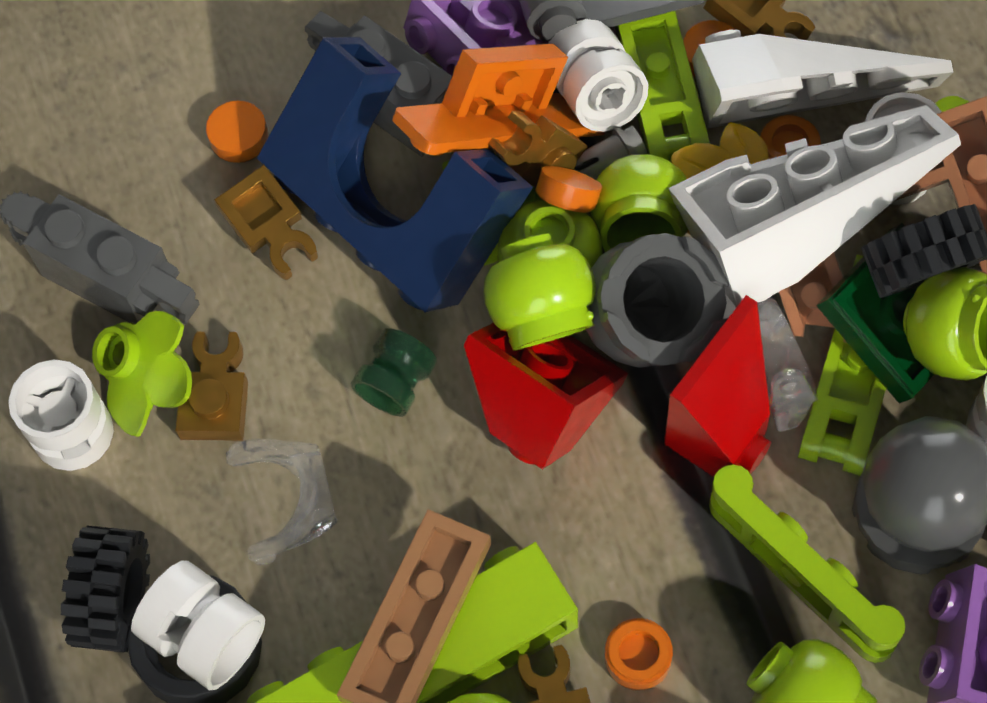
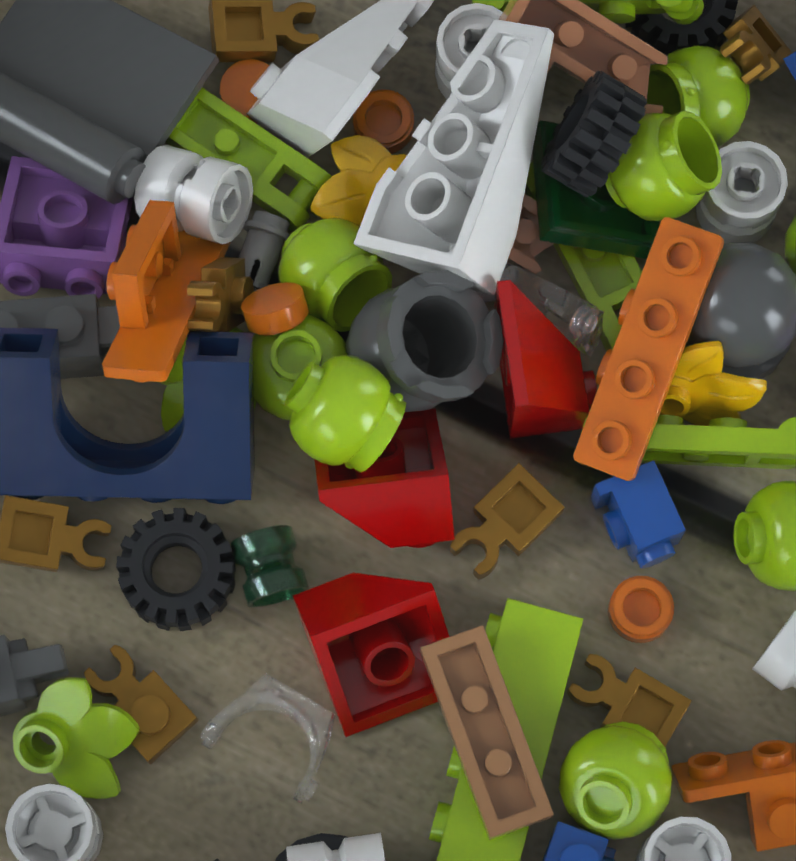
camera: 50 degrees left, 10 degrees up
(321, 287) = (163, 533): none -> black tyre
(394, 477) = (369, 644): none -> red slope
(609, 495) = (511, 515): none -> pearl gold plate
(703, 579) = (640, 515): none -> blue brick
(821, 447) = (648, 348): none -> orange bracket
(835, 520) = (704, 391): none -> yellow plate

